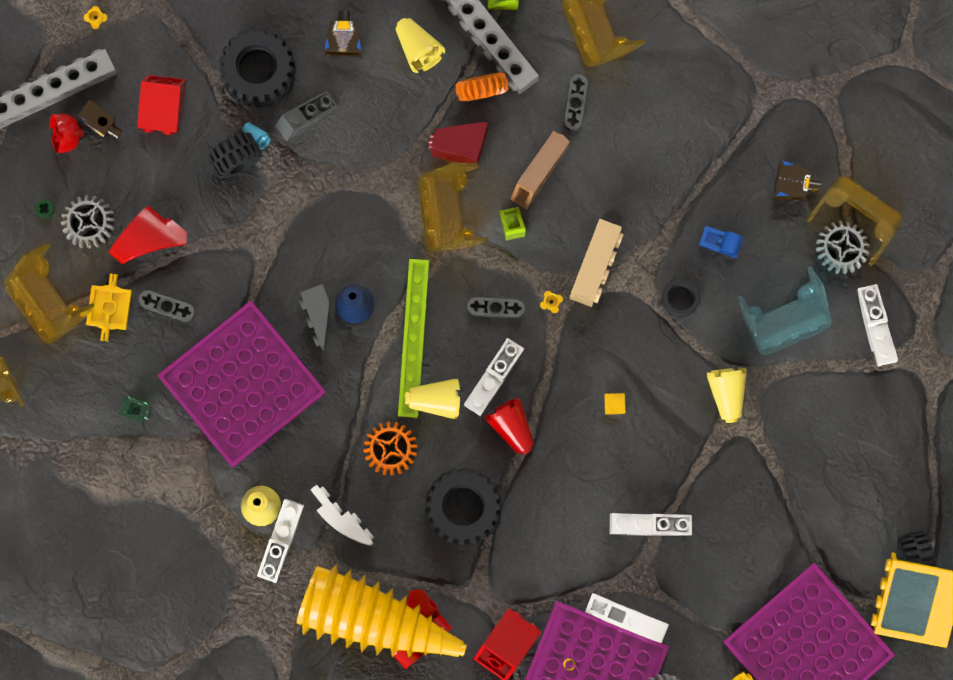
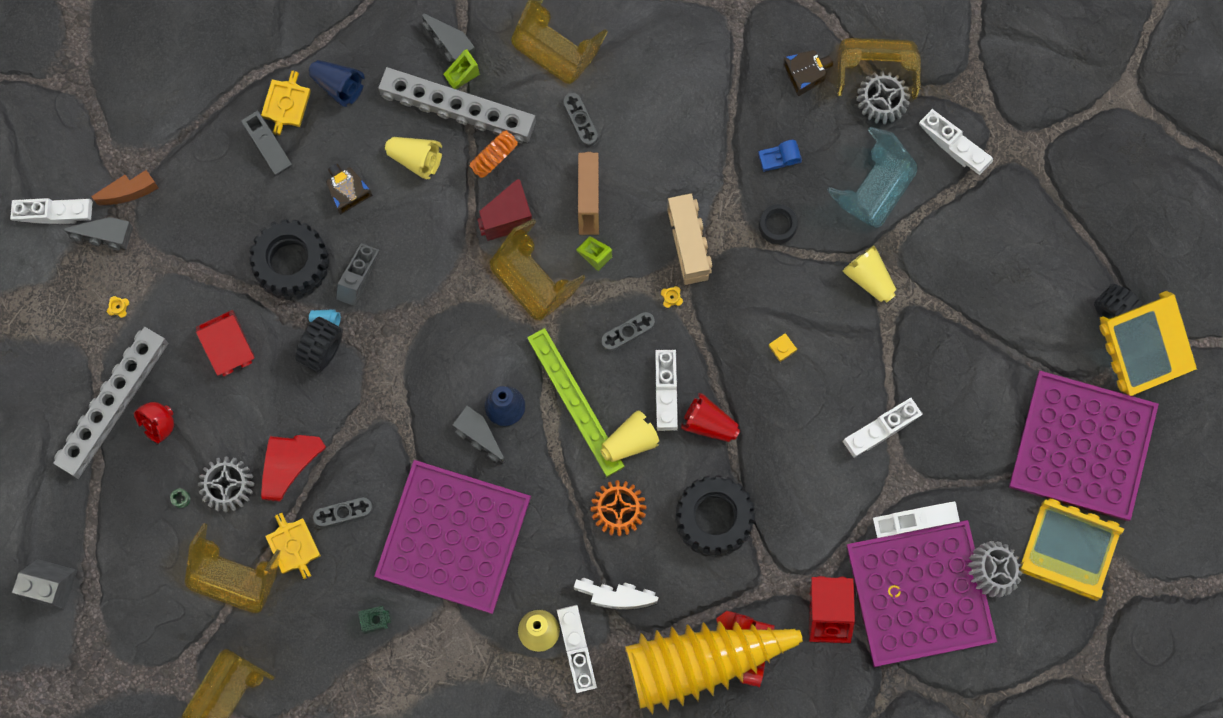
camera: 30 degrees left, 5 degrees down
(93, 114) = (171, 388): dark brown torso -> none

